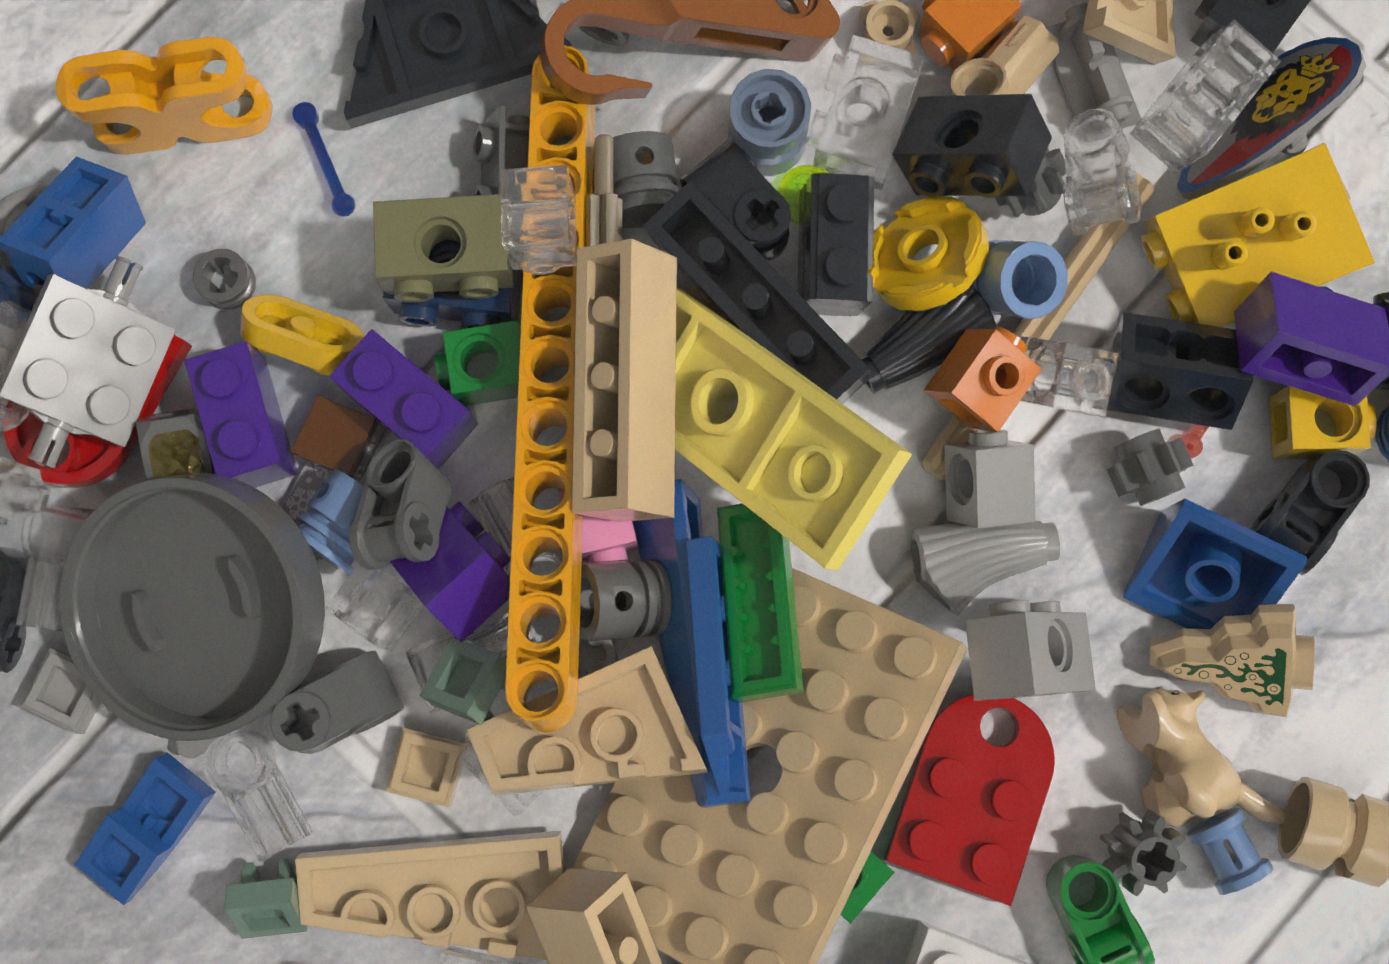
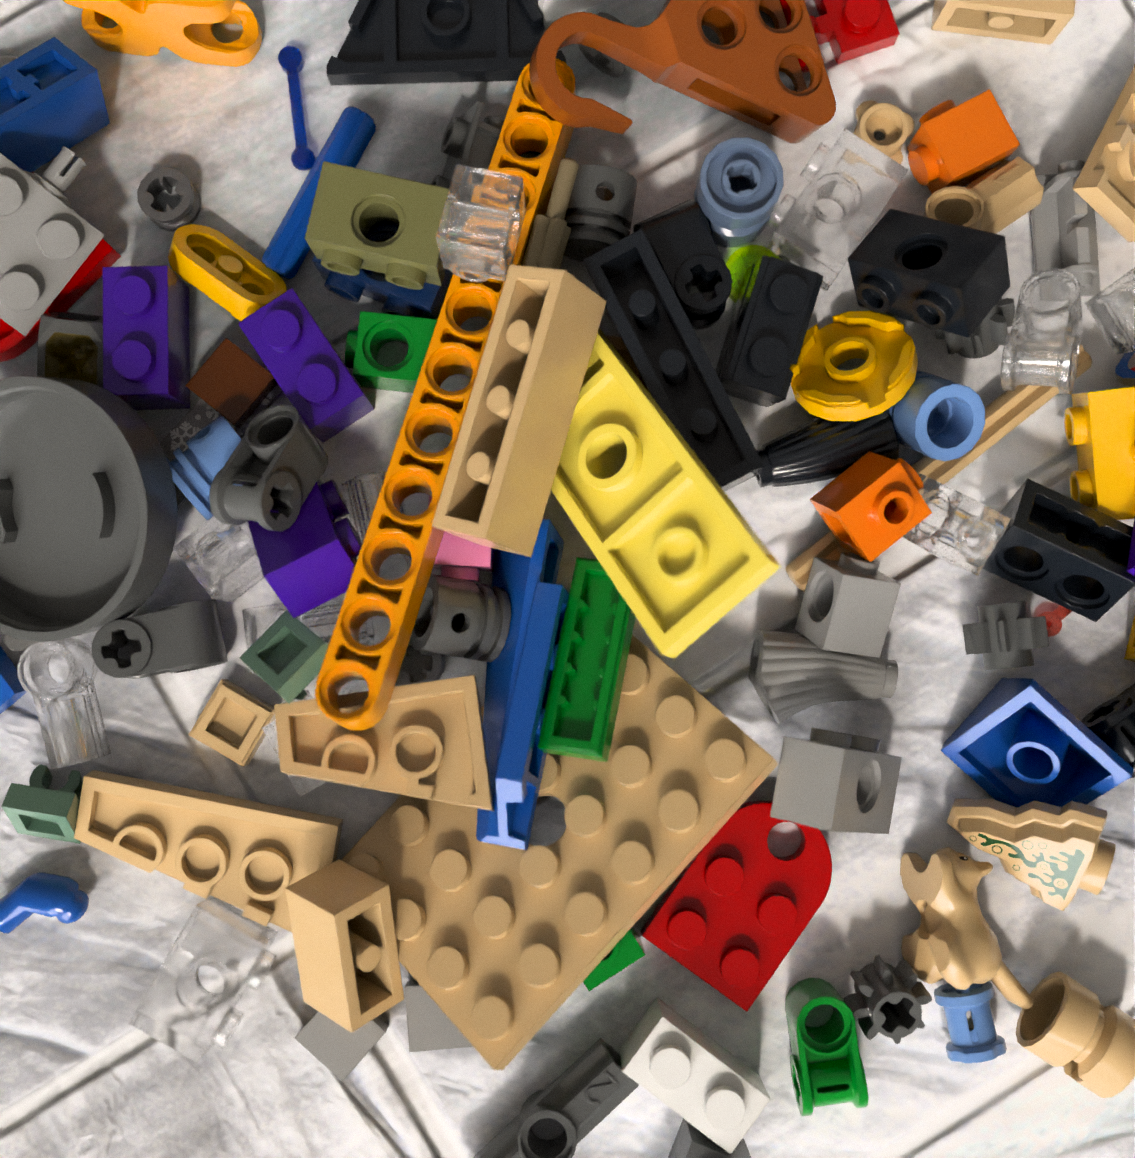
camera: 10 degrees right, 5 degrees up
(357, 269) = (342, 147): none -> blue axle

